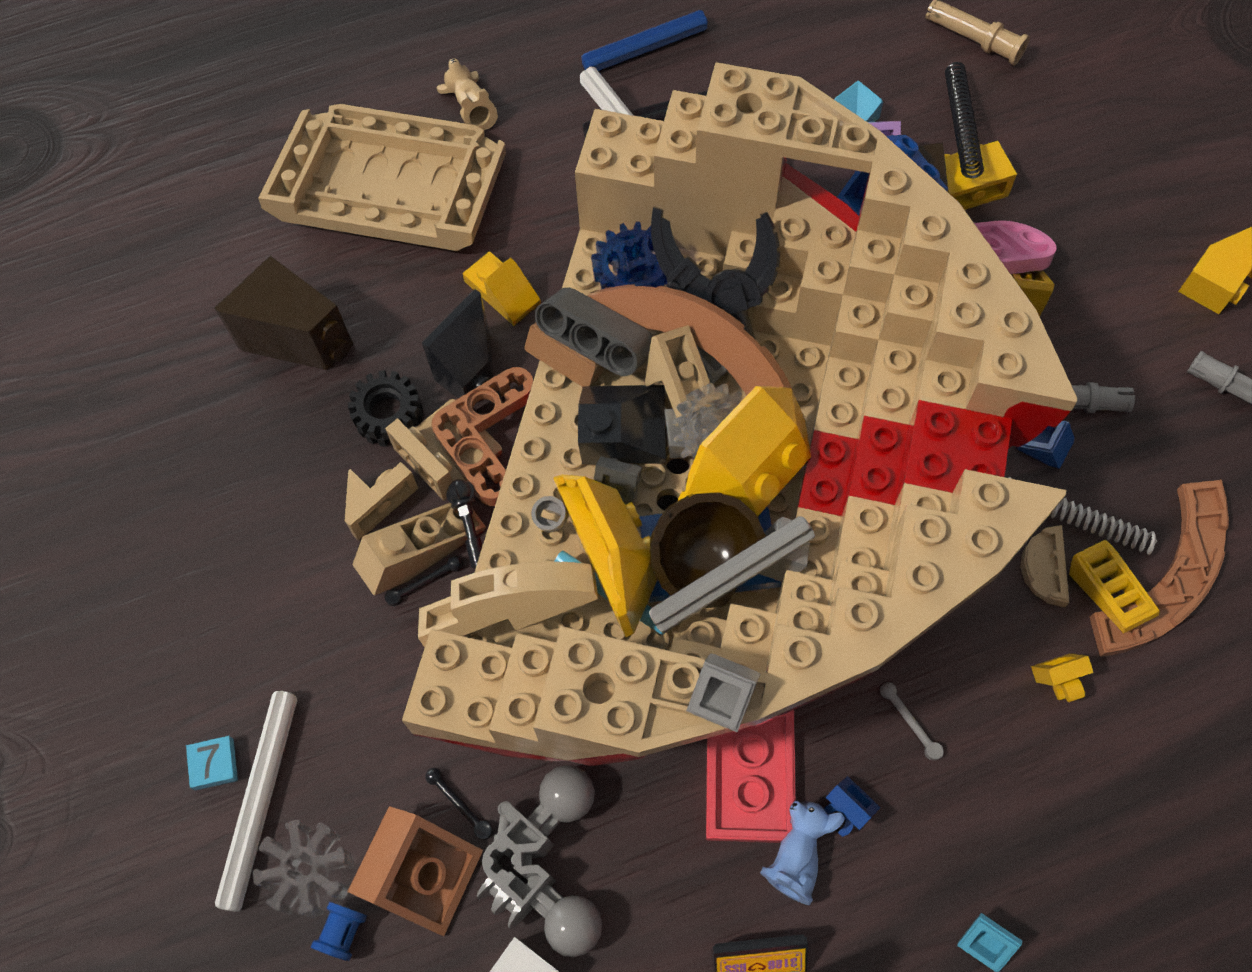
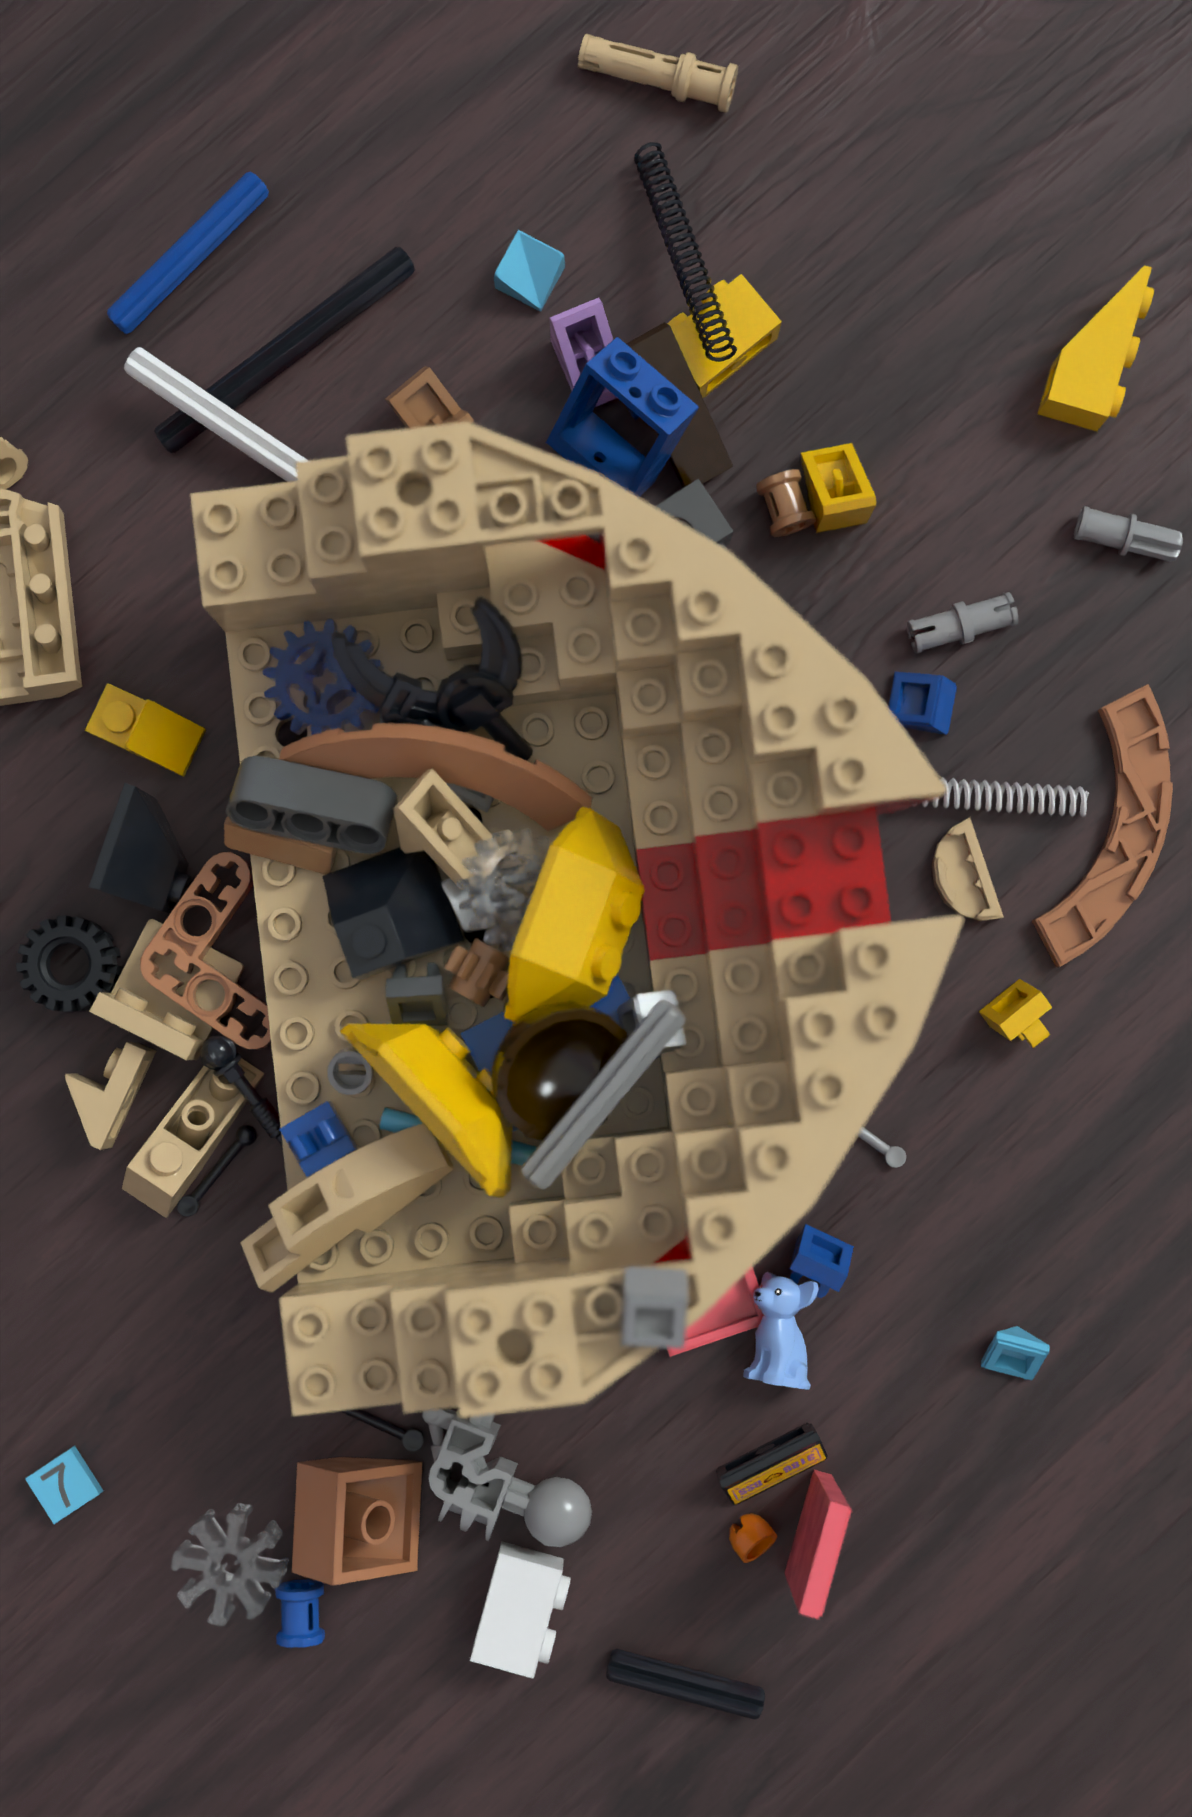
camera: 25 degrees left, 20 degrees up
(256, 802) = (137, 1505): white axle -> none
(505, 549) = (318, 1138): none -> blue tile
(666, 476) = (478, 972): none -> medium nougat gear
(1018, 245) = (784, 449): bright pink tile -> none
(1104, 561) = (1046, 854): yellow slope -> none

